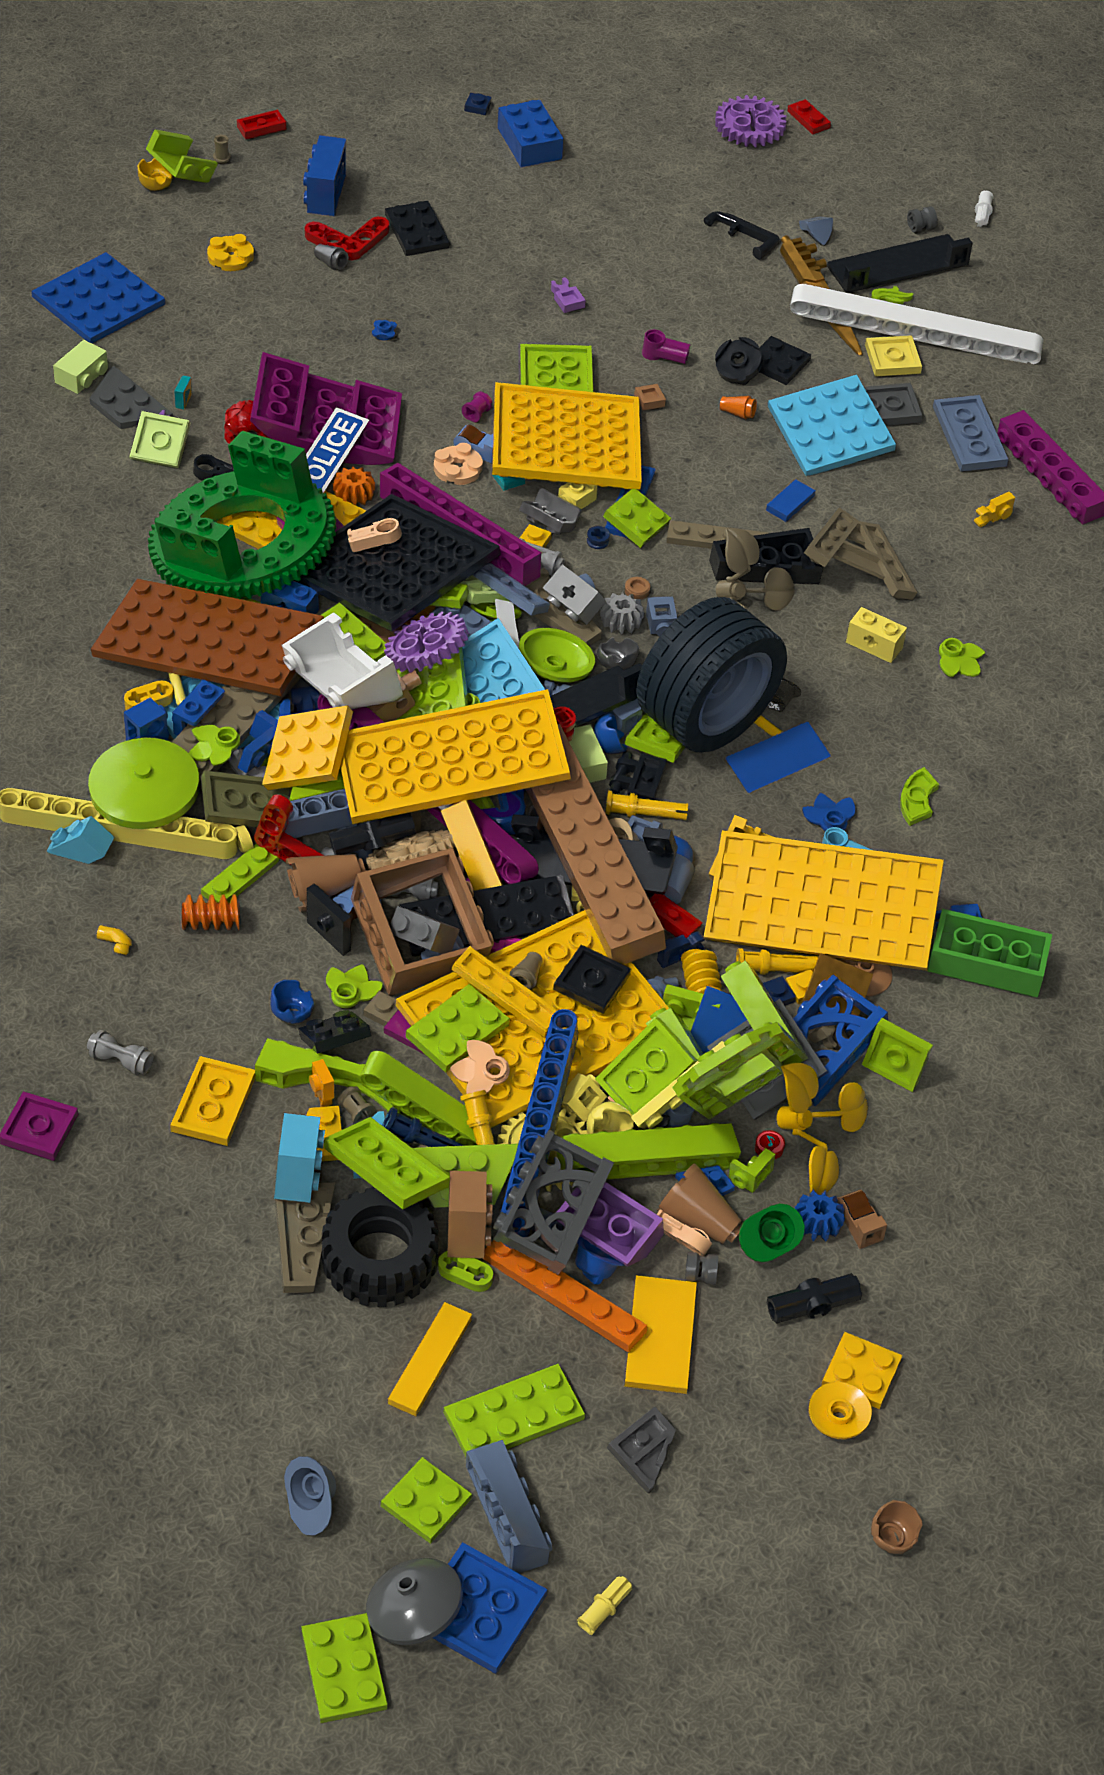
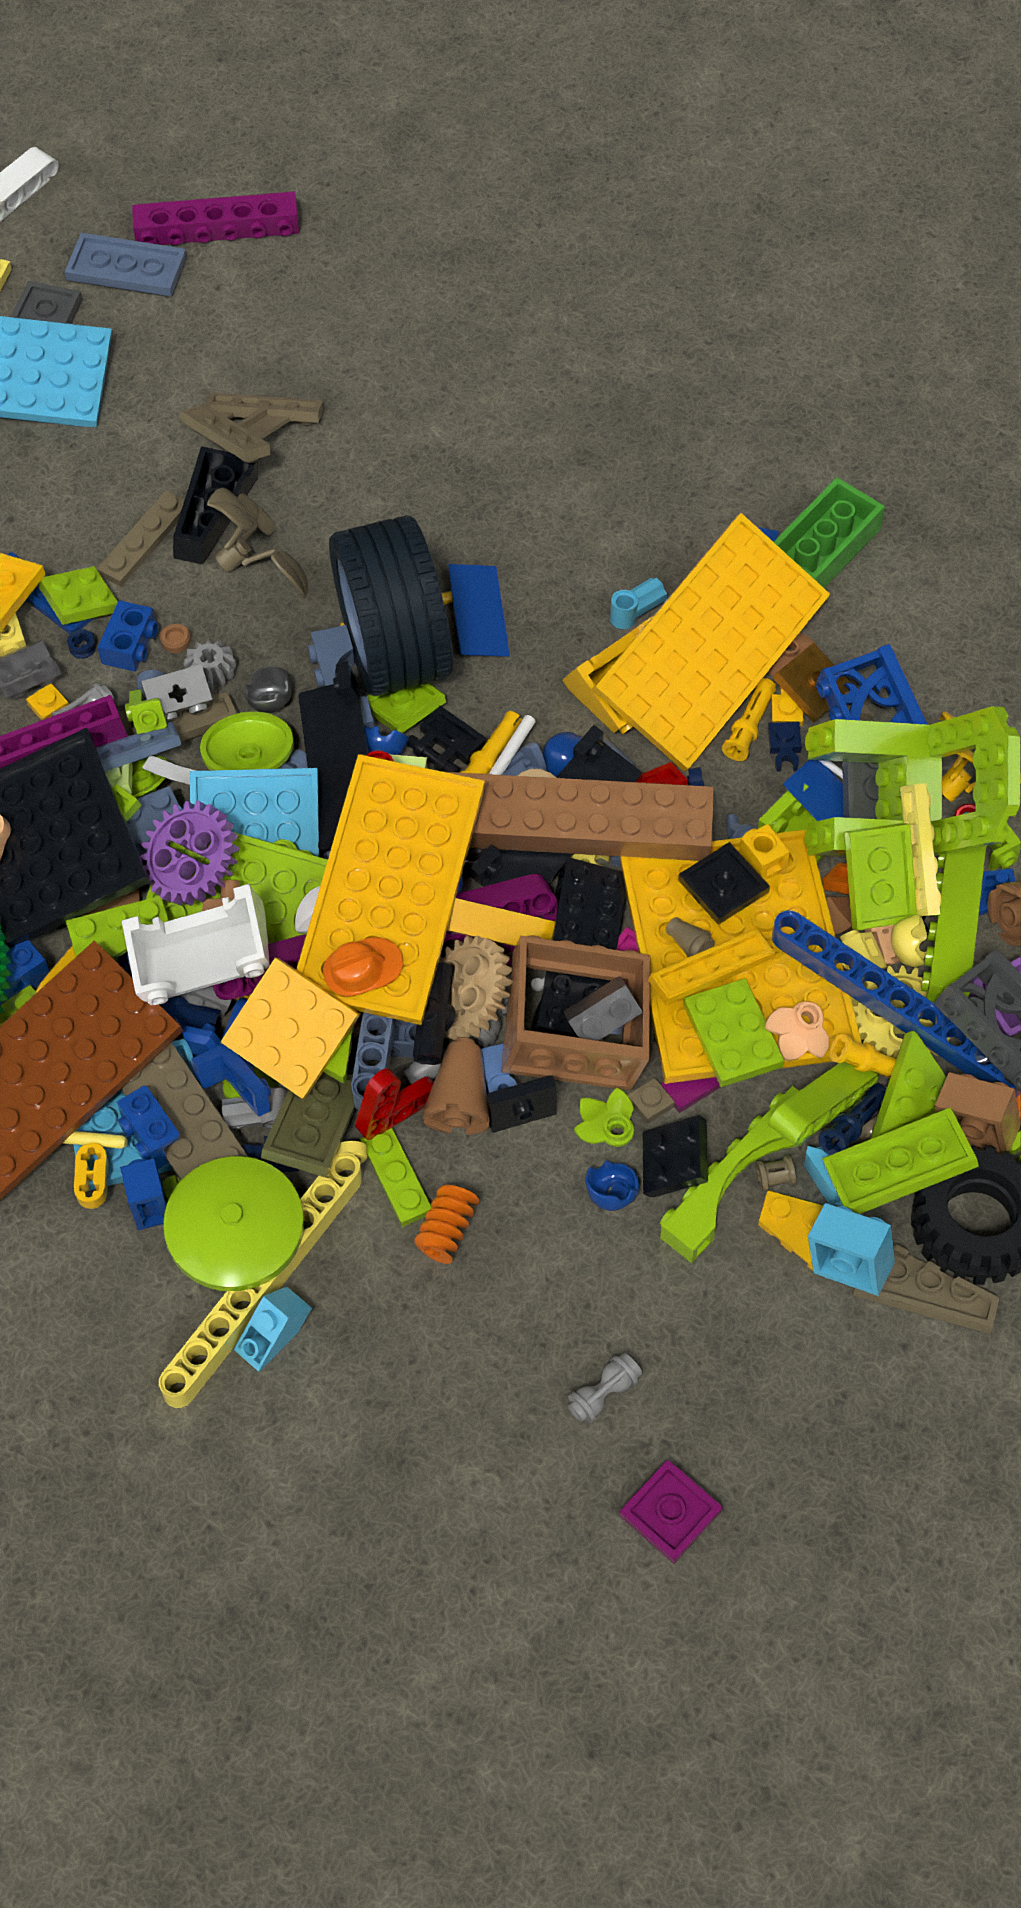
camera: 60 degrees left, 10 degrees up
(117, 936) = (430, 1334): yellow arm -> none
(213, 1101) = (710, 1314): yellow plate -> none
(214, 743) = (216, 1132): lime plate -> none
(322, 1083) = (747, 1190): light orange plate -> none
(374, 763) = (362, 966): none -> orange piece
(541, 581) = (145, 714): none -> lime bracket
(618, 557) = (128, 636): none -> blue brick
(634, 995) = (765, 863): none -> yellow brick
(646, 815) = (513, 745): none -> white bar
(660, 620) = (236, 629): sand blue brick -> none
(700, 970) = (746, 790): yellow piece -> none
(790, 500) = (127, 453): blue tile -> none
(827, 811) = (571, 598): blue plate -> none
(876, 635) = (365, 457): light yellow brick -> none
(897, 1054) = (926, 659): lime plate -> none
(915, 796) = (587, 518): lime tile -> none
(959, 658) = (429, 406): lime plate -> none
(998, 508) = (249, 286): yellow plate -> none

